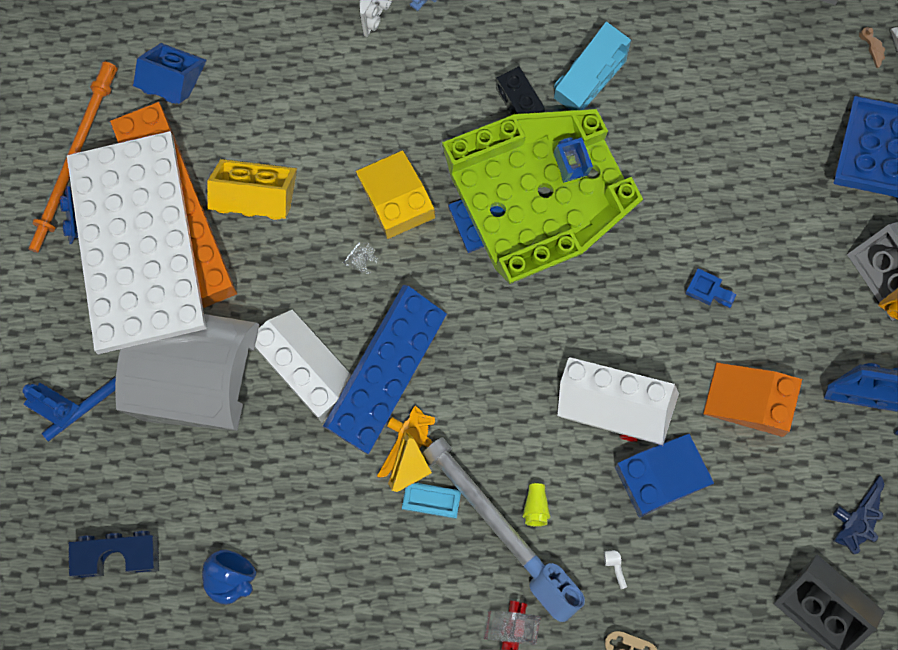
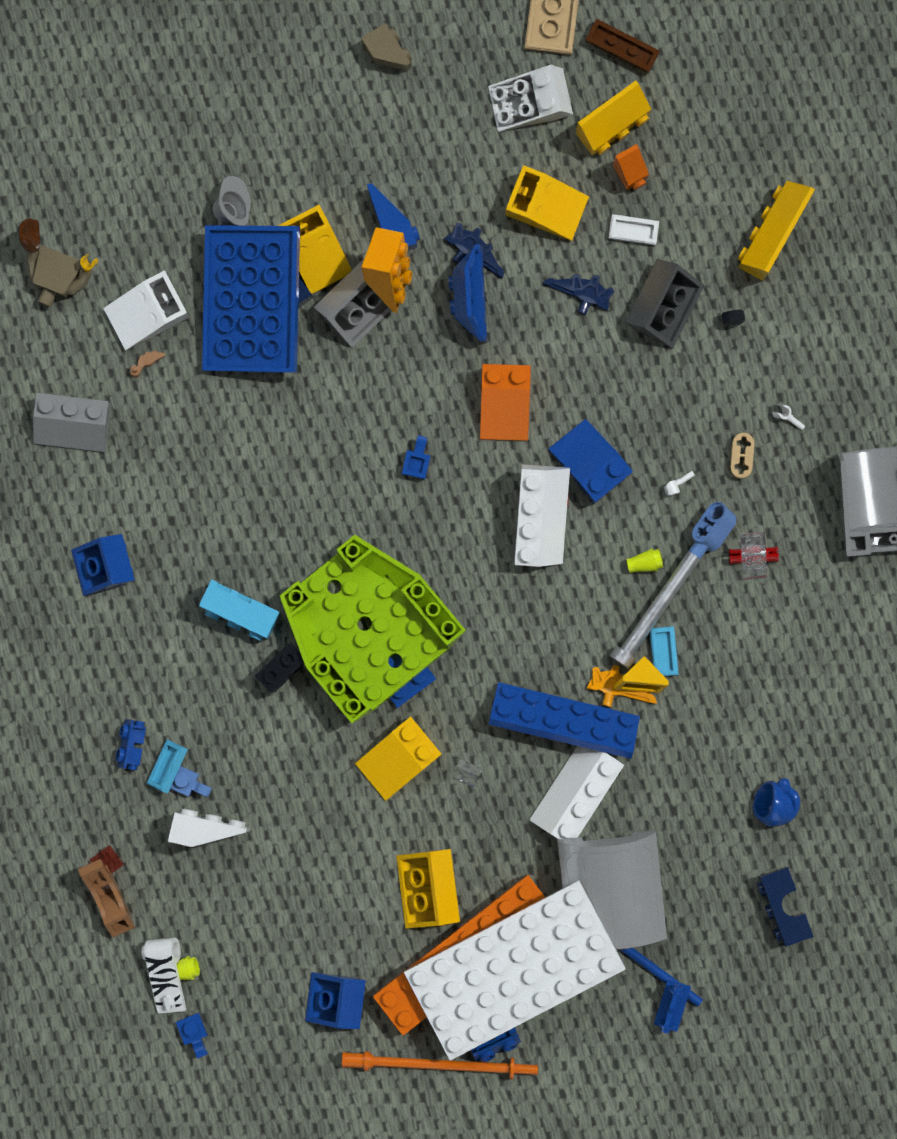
camera: 110 degrees left, 10 degrees up
(572, 159) = (333, 605): blue window -> none

